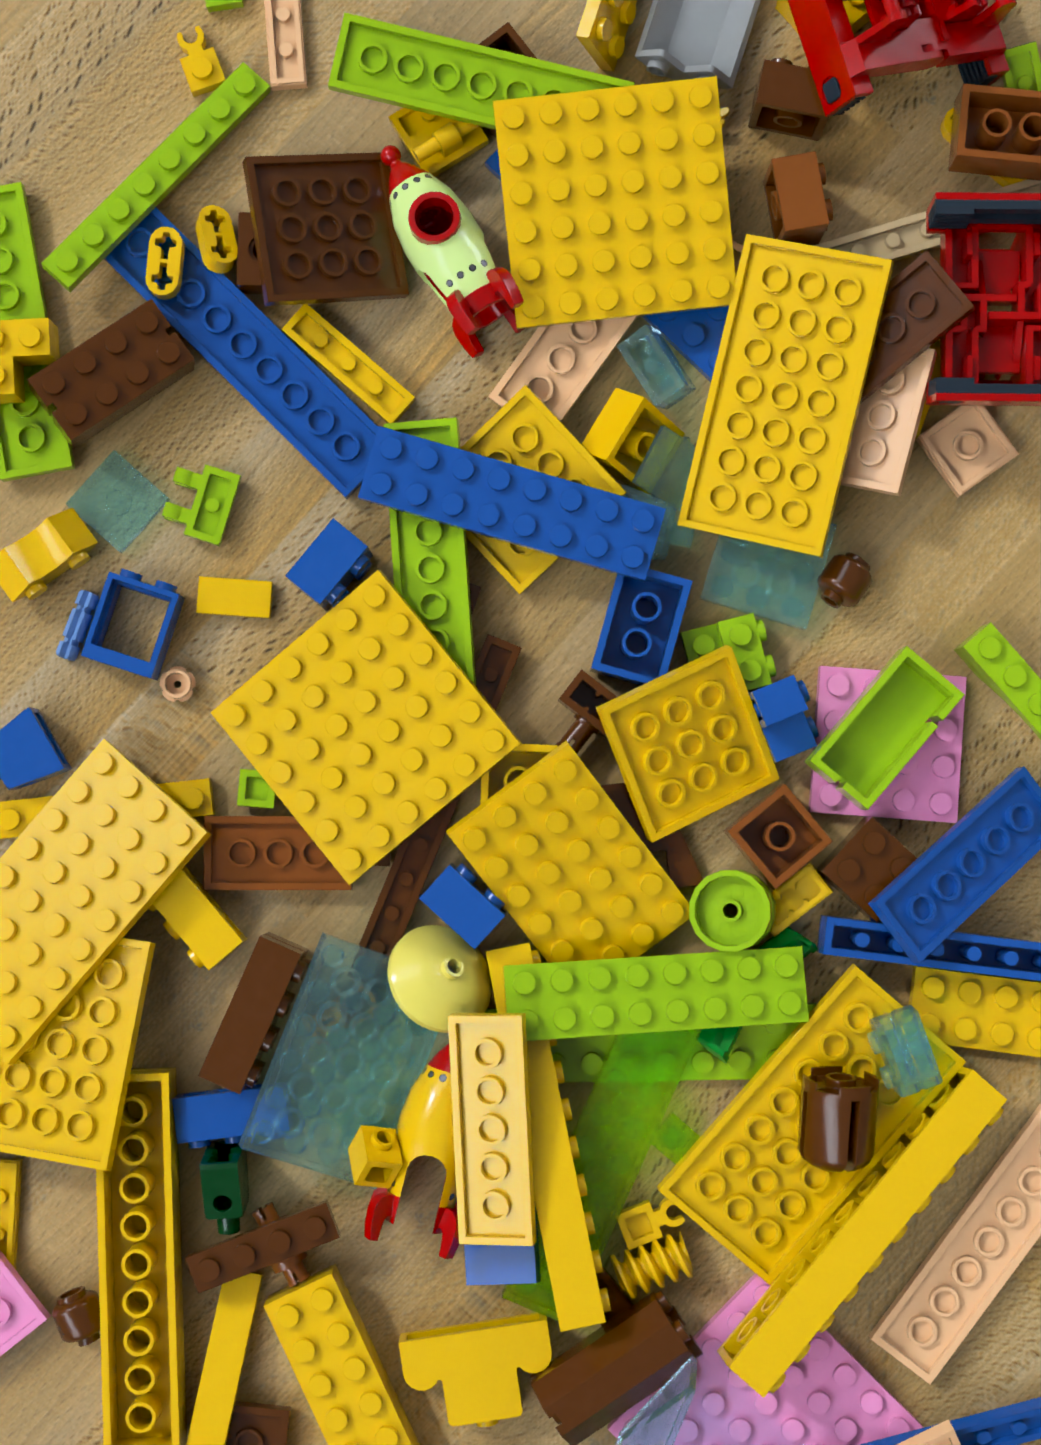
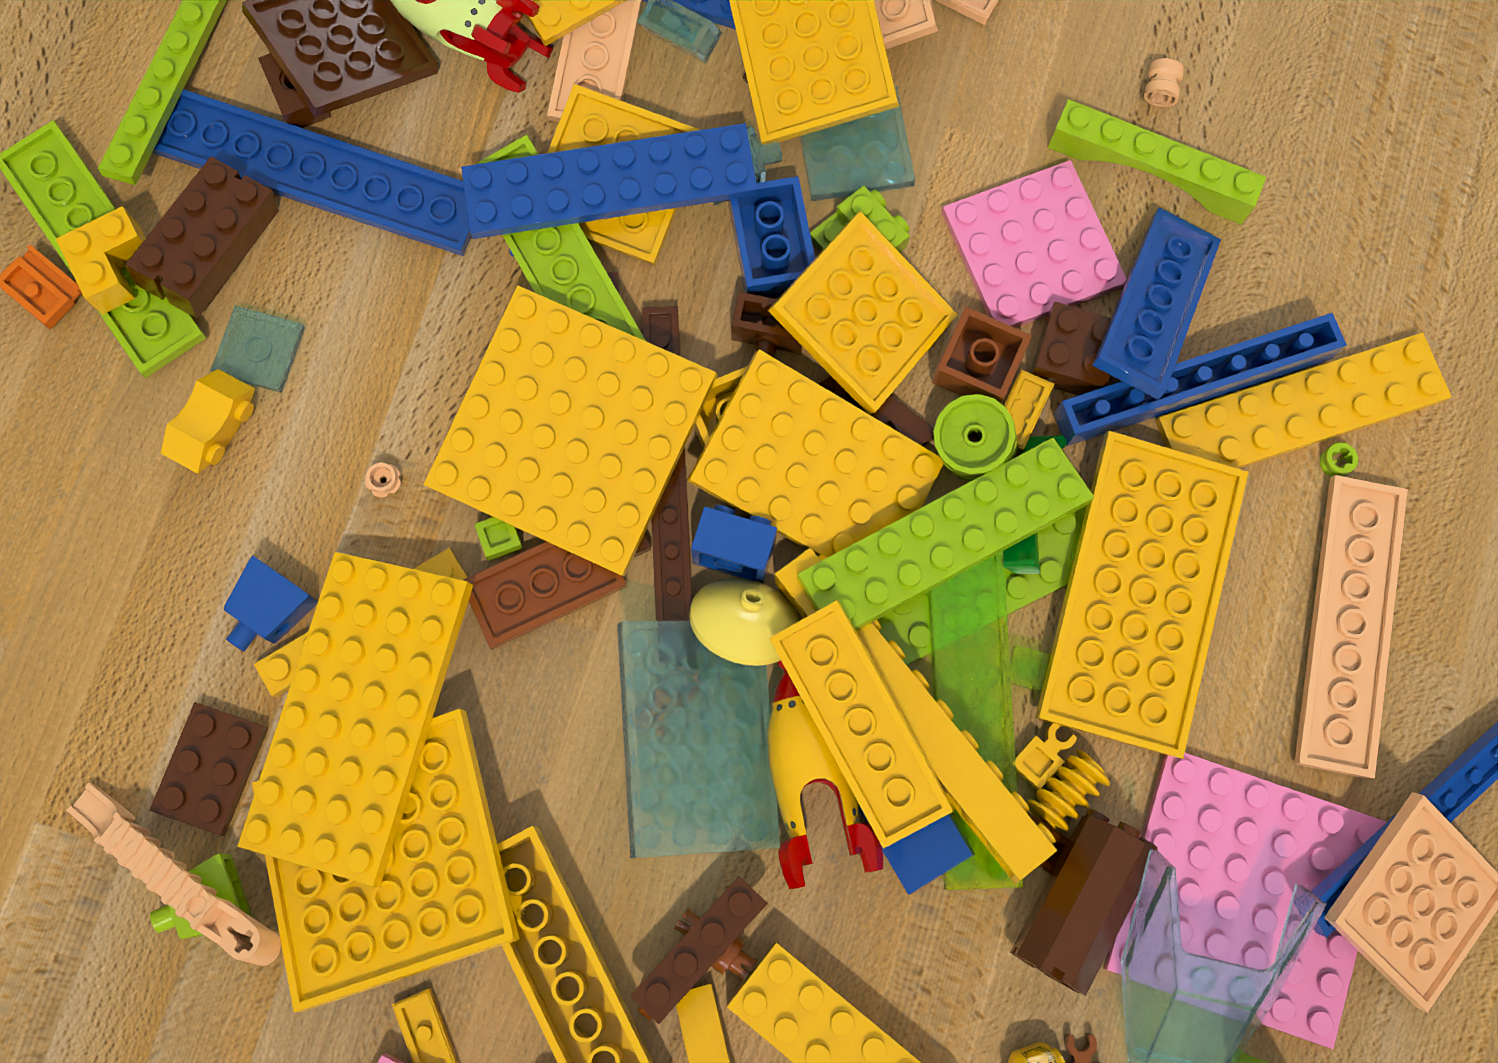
camera: 25 degrees left, 10 degrees down
(77, 625) = (267, 470): medium blue axle -> none
(103, 614) = (323, 479): blue window -> none
(156, 262) = (218, 125): yellow beam -> none
(197, 920) = (496, 678): yellow brick -> none
(211, 504) = (344, 313): lime plate -> none
(212, 1115) = (595, 851): blue brick -> none
(223, 238) = (249, 92): yellow beam -> none
(224, 1185) = (628, 897): dark green torso -> none
(234, 597) = (401, 382): yellow tile -> none
(253, 1013) = (588, 731): reddish brown piece -> none
(331, 565) = (472, 307): blue brick -> none
(348, 364) = (411, 143): yellow plate -> none
(375, 1156) = (764, 808): yellow brick -> none
(477, 1364) = (957, 967): yellow brick -> none
(625, 434) = (689, 90): yellow slope -> none
(666, 467) = (728, 101): clear light blue piece -> none
(782, 717) = (928, 250): blue brick -> none
(838, 1119) = (1167, 567): reddish brown cylinder -> none
(844, 580) = (927, 127): reddish brown head -> none
(858, 1233) = (1238, 668): yellow brick -> none
(884, 728) = (1025, 221): lime piece -> none
(904, 1050) = (1192, 482): clear light blue brick -> none

